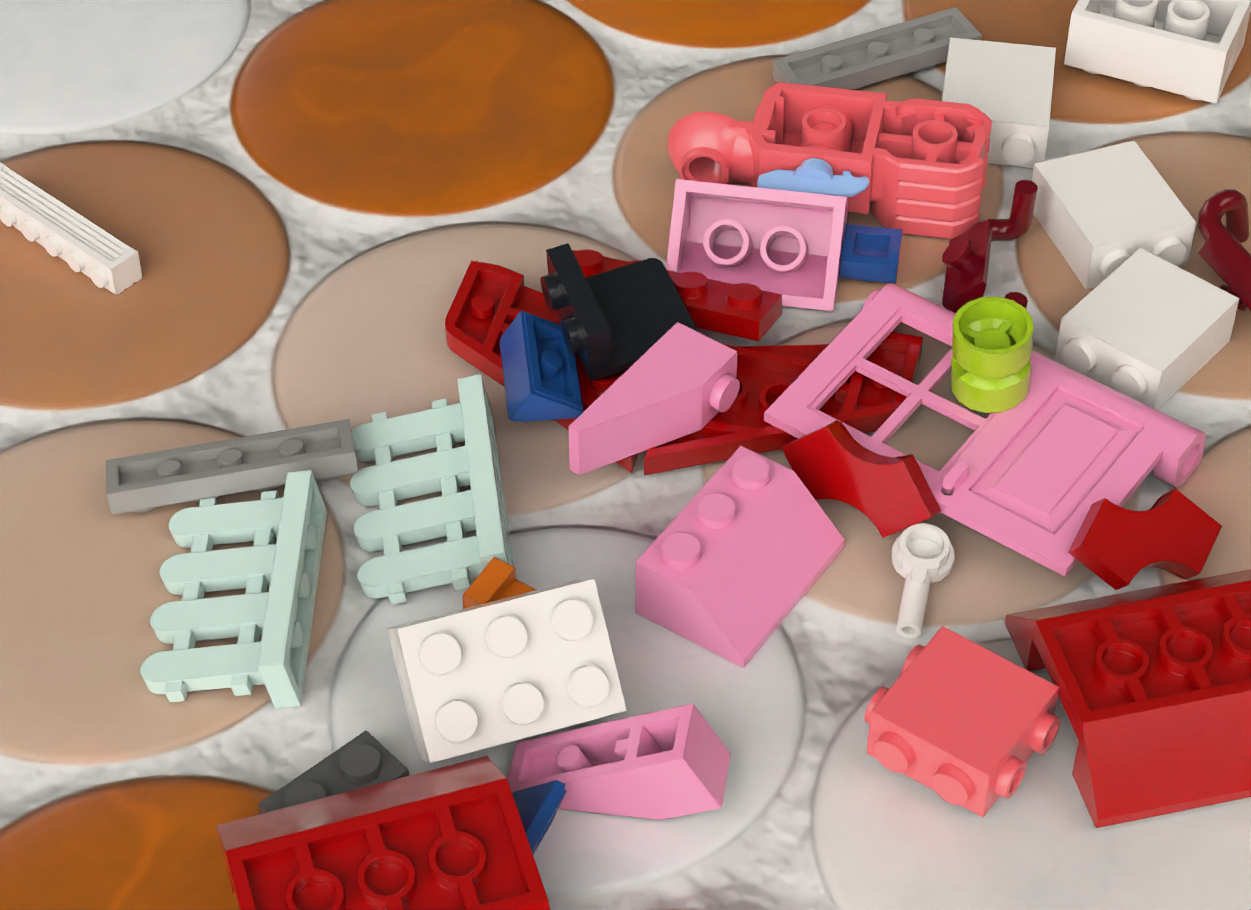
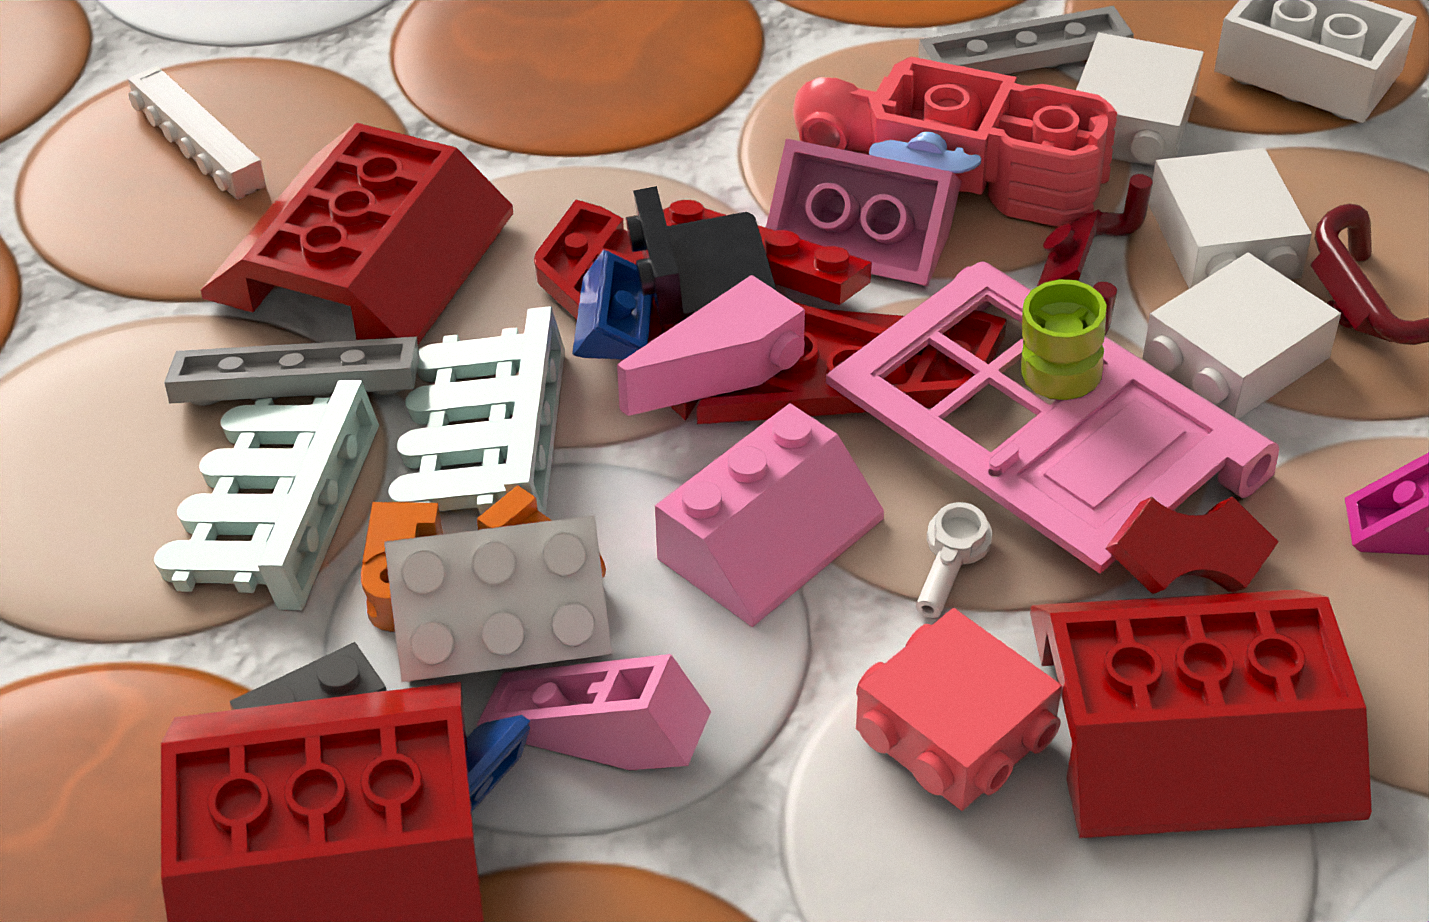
camera: 10 degrees right, 0 degrees up
(269, 310) = (370, 227): none -> red slope
(376, 612) = (388, 523): none -> orange leg
(870, 253) = (974, 232): blue plate -> none
(881, 487) = (926, 460): red tile -> none

